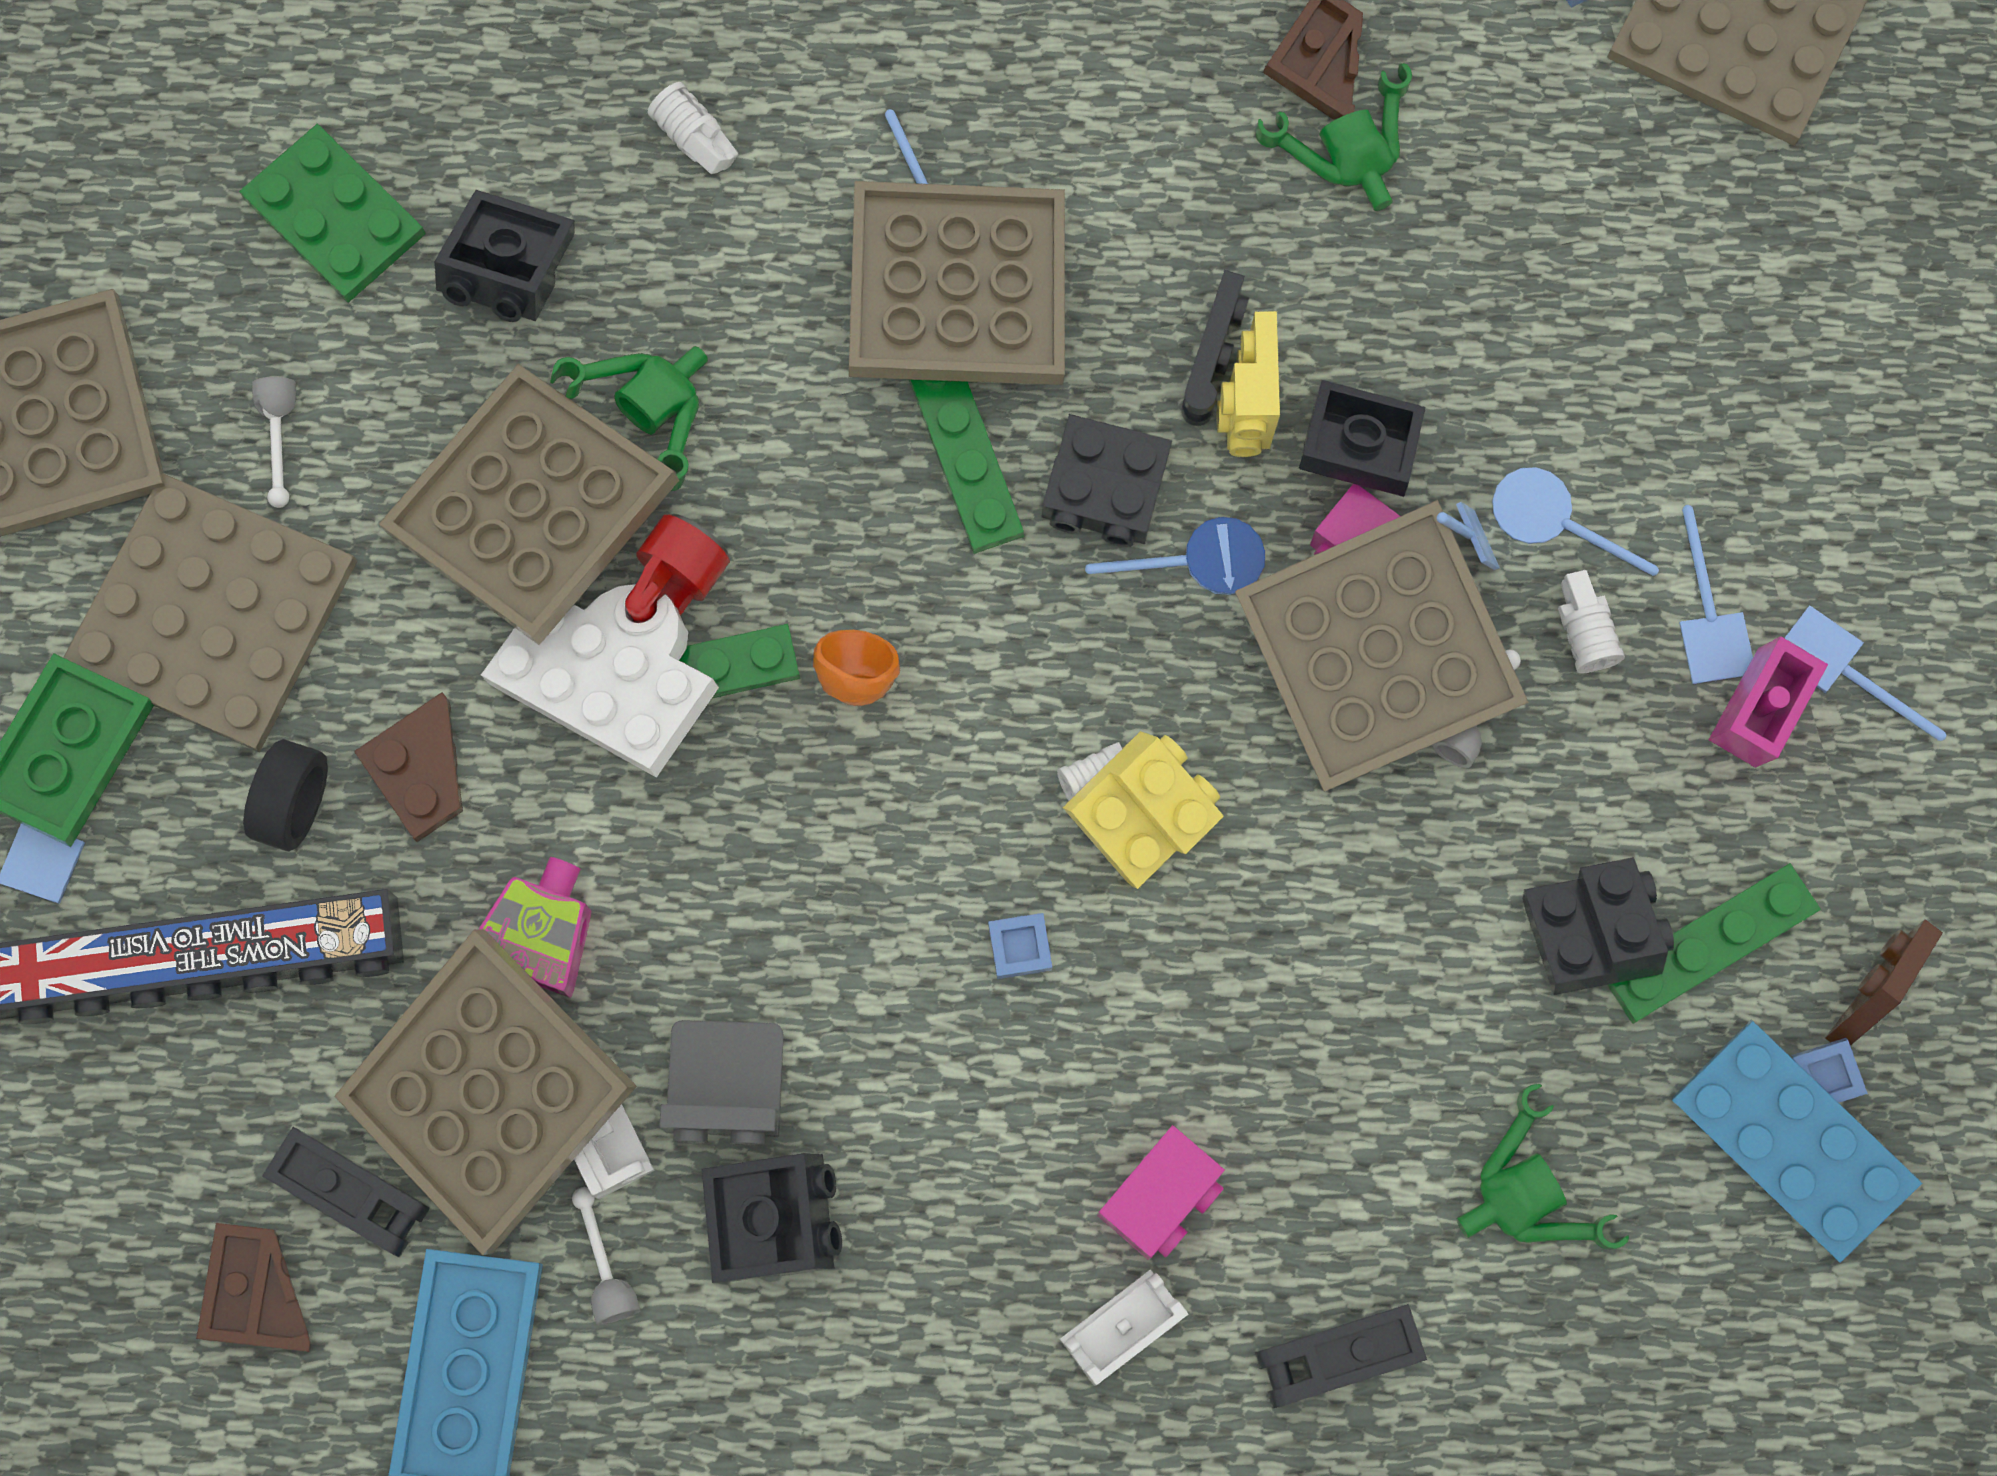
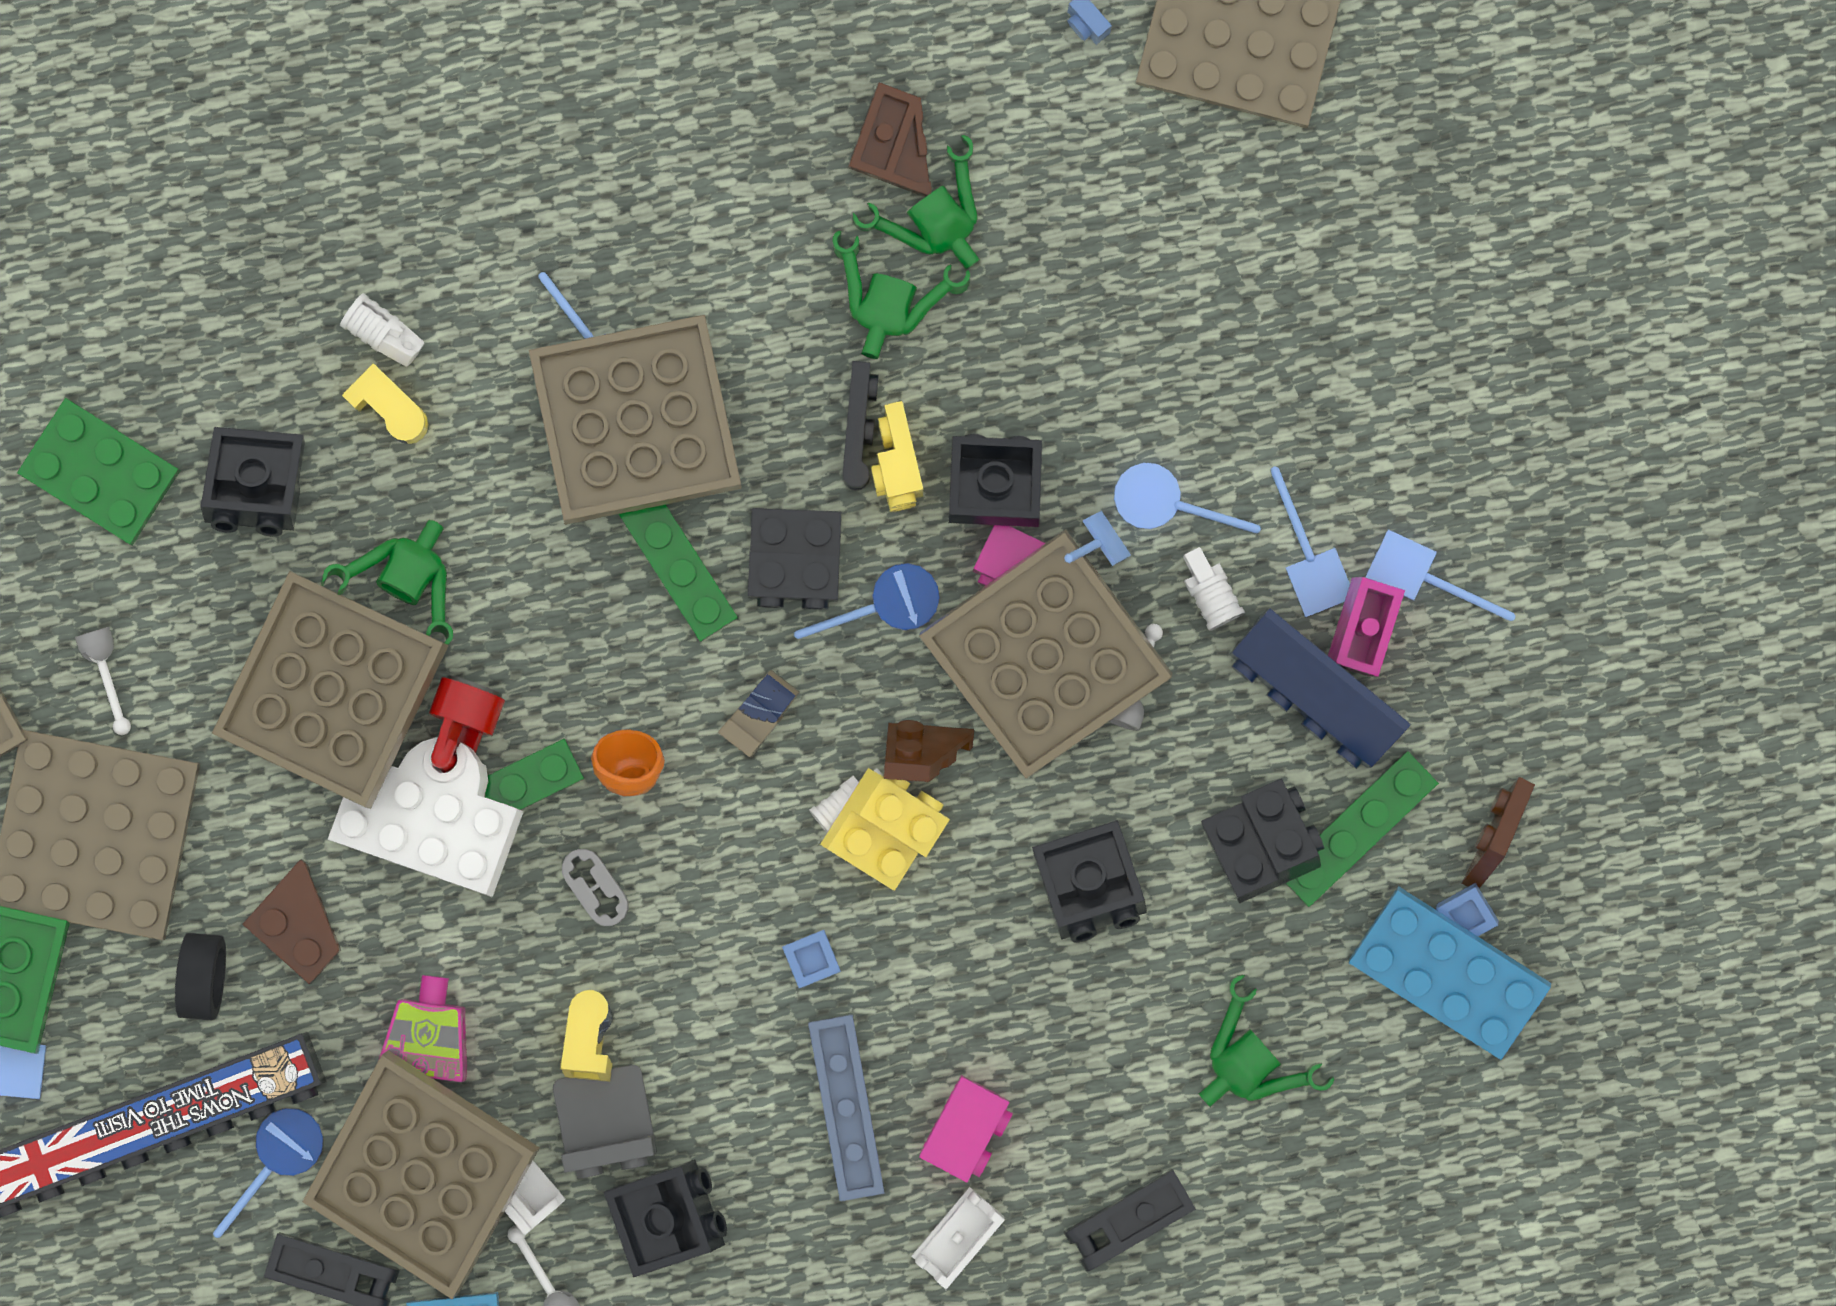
camera: 15 degrees left, 10 degrees up
(334, 1025) = (287, 1145): none -> blue piece
(681, 205) = (402, 416): none -> light yellow leg
(723, 977) = (586, 1023): none -> light yellow leg
(769, 809) = (586, 894): none -> light grey beam
(1021, 1135) = (846, 1107): none -> sand blue plate
(1022, 647) = (759, 713): none -> leg
(1202, 726) = (922, 750): none -> reddish brown wing
(1280, 217) = (888, 300): none -> green piece
(1377, 930) = (1090, 882): none -> black plate
(1700, 761) = (1318, 689): none -> dark blue slope

